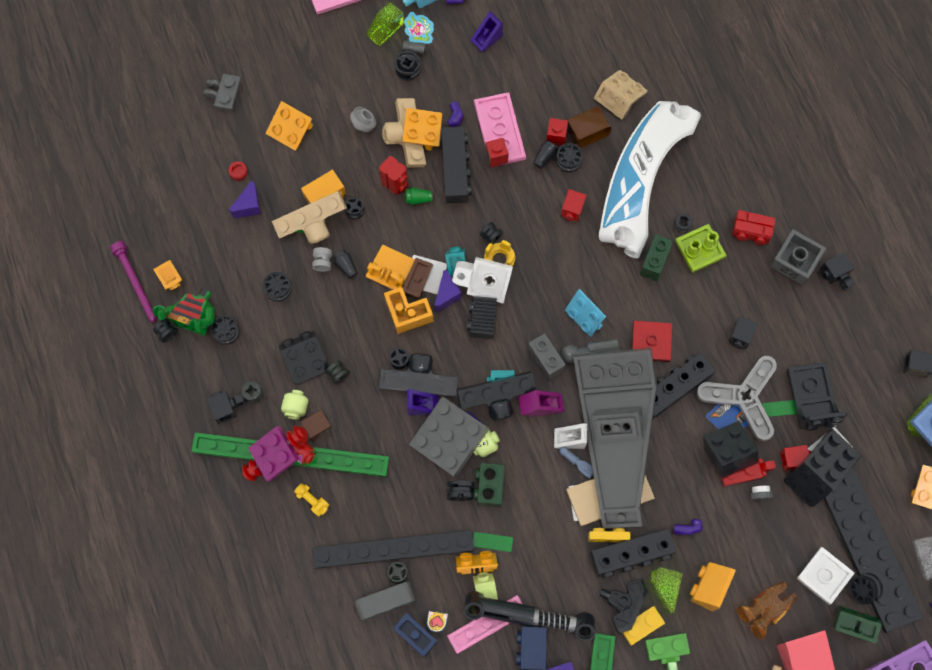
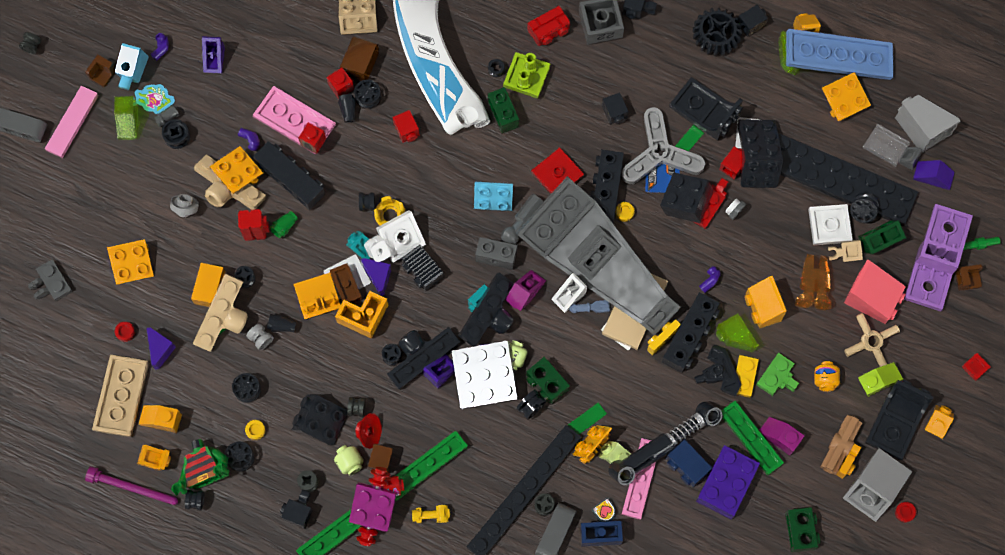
camera: 45 degrees left, 0 degrees up
(191, 212) = (120, 396): none -> tan tile
(200, 253) = (160, 418): none -> light orange slope
(254, 321) = (255, 430): none -> yellow tile
(328, 398) = (369, 430): none -> red piece
(674, 416) = (624, 211): none -> yellow tile
(820, 609) = (849, 251): none -> tan plate
(865, 347) = (725, 23): none -> black gear

